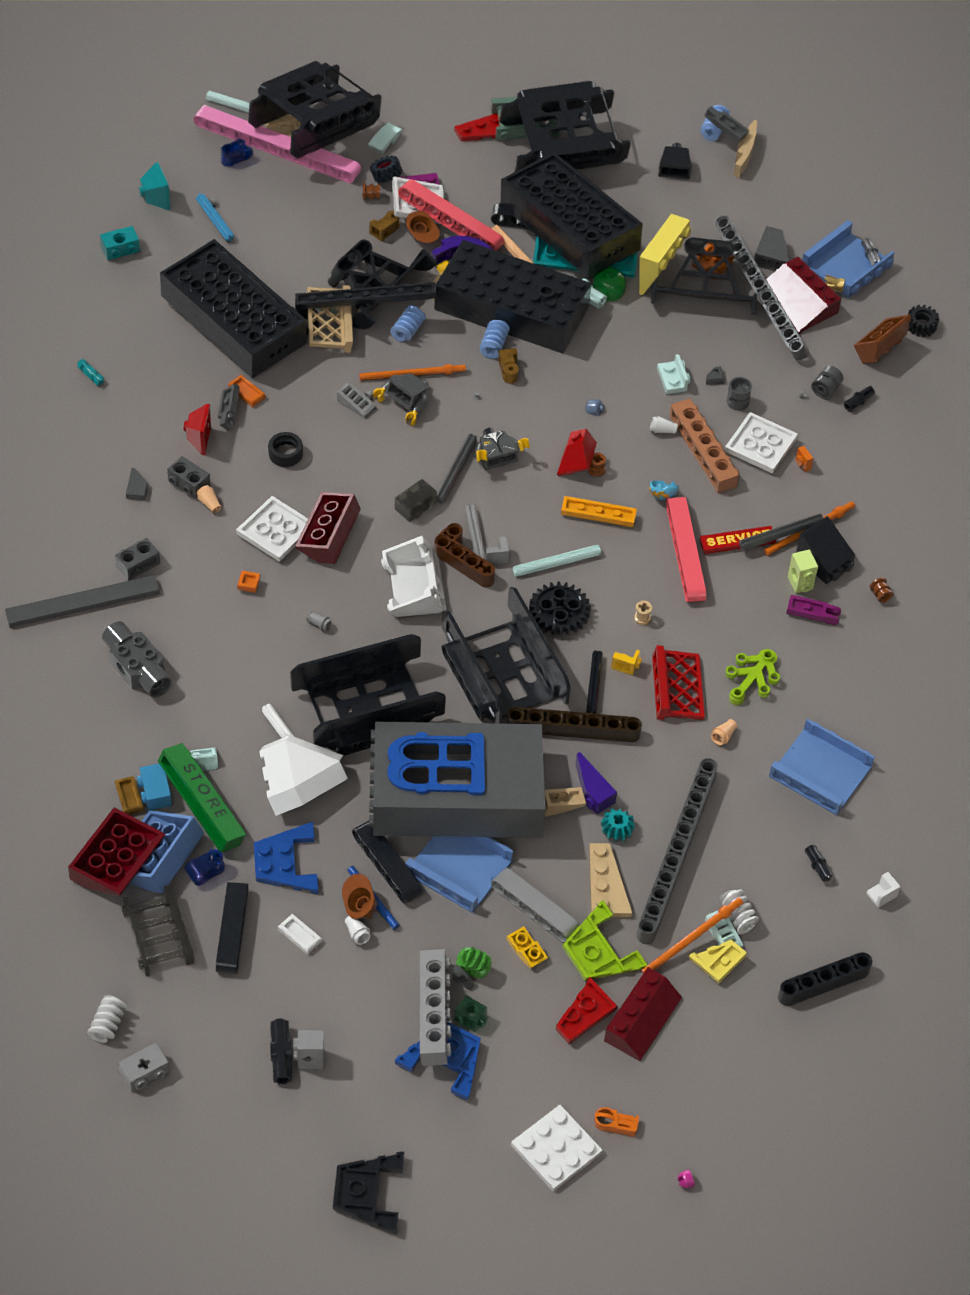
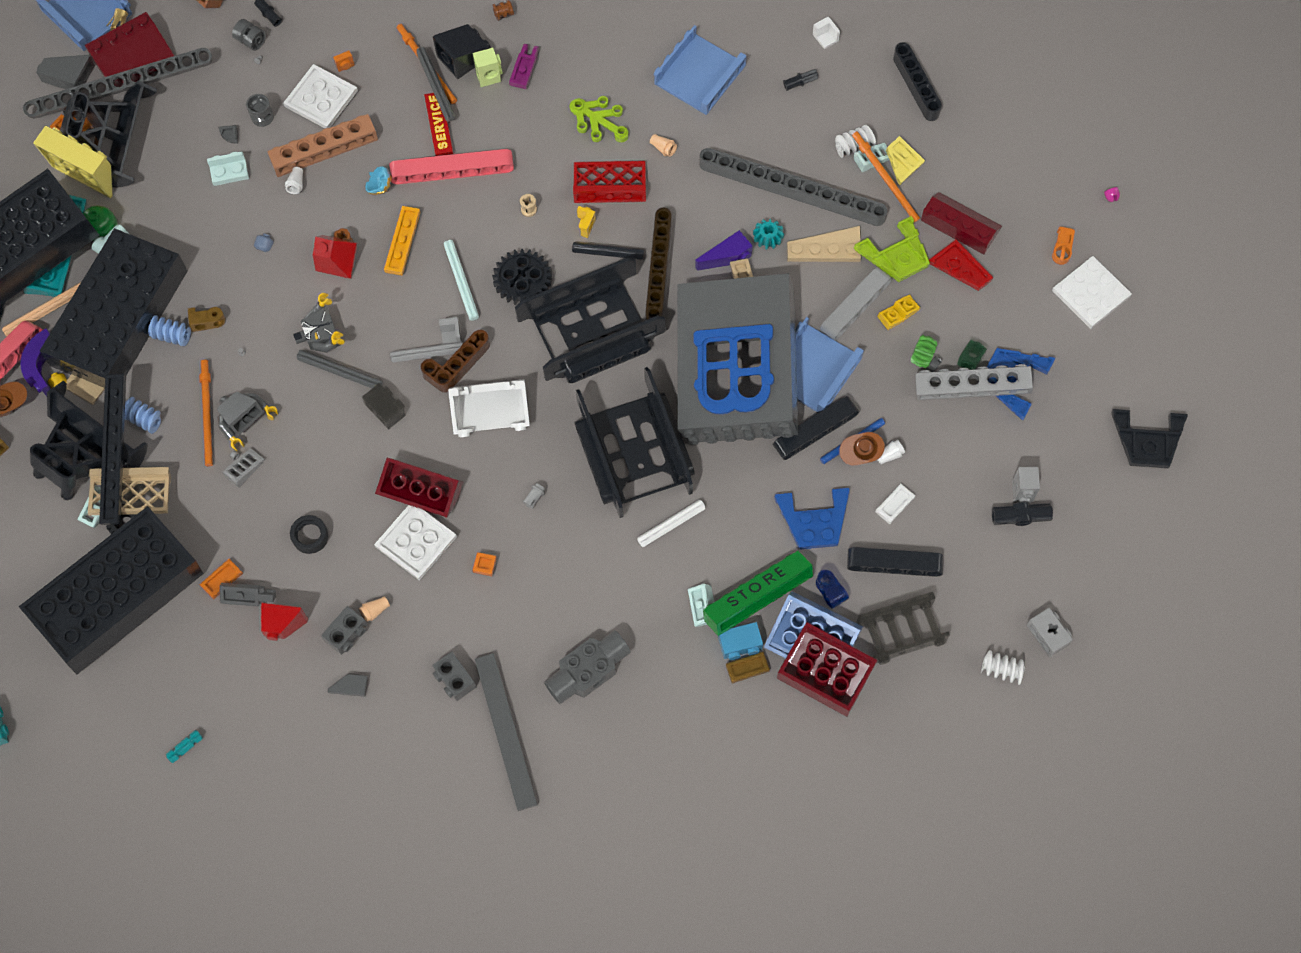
camera: 85 degrees left, 15 degrees up
(298, 772) = (725, 504): white panel -> none

